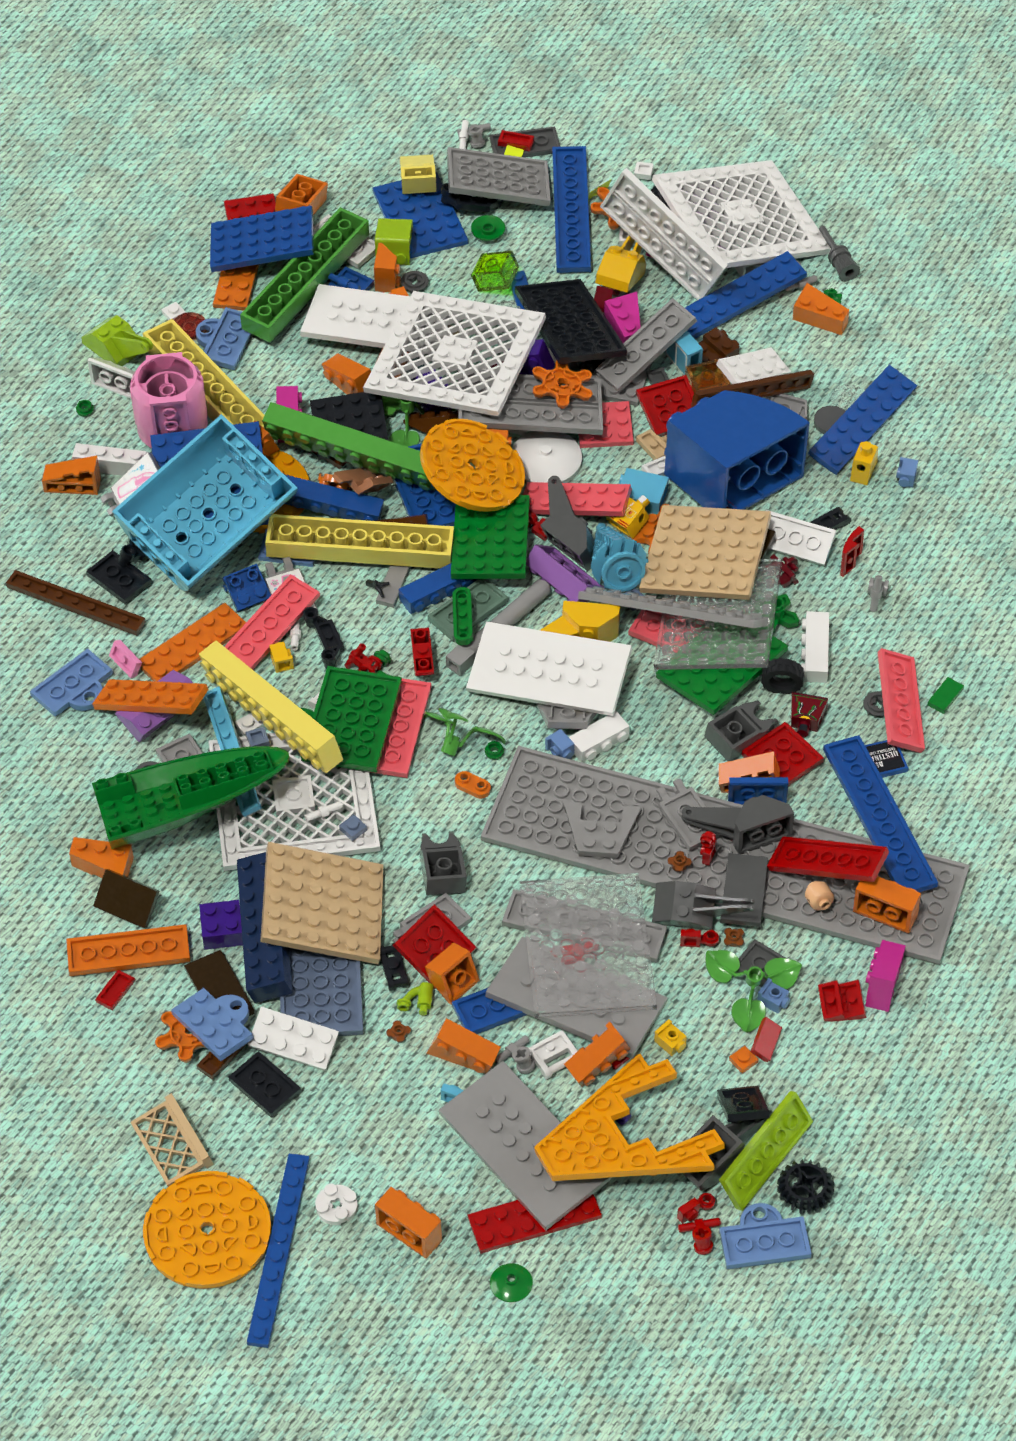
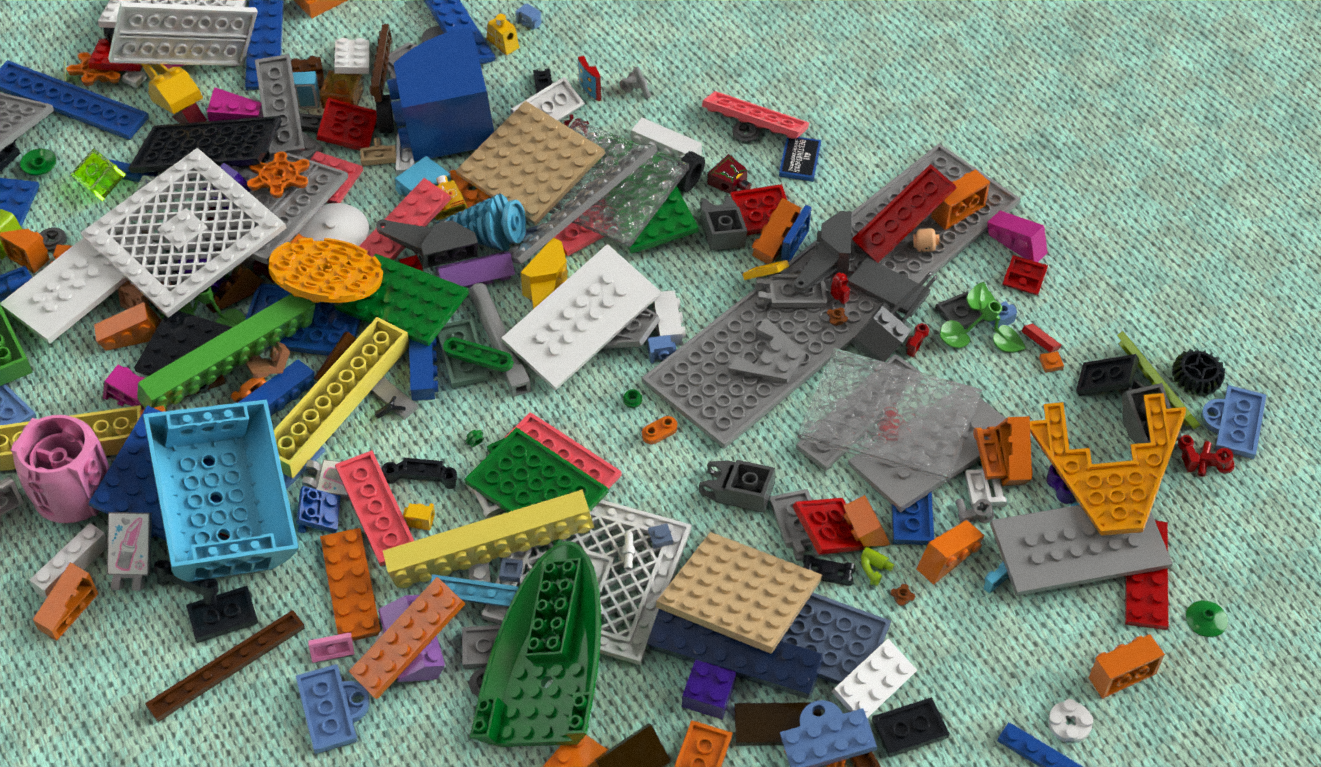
camera: 65 degrees left, 0 degrees up
(295, 635) = (400, 496): white bar -> none
(363, 662) = (471, 451): red piece -> none
(422, 651) = (495, 404): red slope -> none
(451, 741) = (609, 422): bright green plant -> none
(583, 1035) = (990, 453): none -> orange plate
(643, 170) = (69, 37): white plate -> none
(670, 1038) = (1010, 399): yellow brick -> none
(697, 783) = (765, 269): none -> yellow tile
(733, 942) = (922, 317): dark orange plate -> none
(879, 813) = (852, 170): blue plate -> none
(945, 695) = (762, 90): green tile -> none

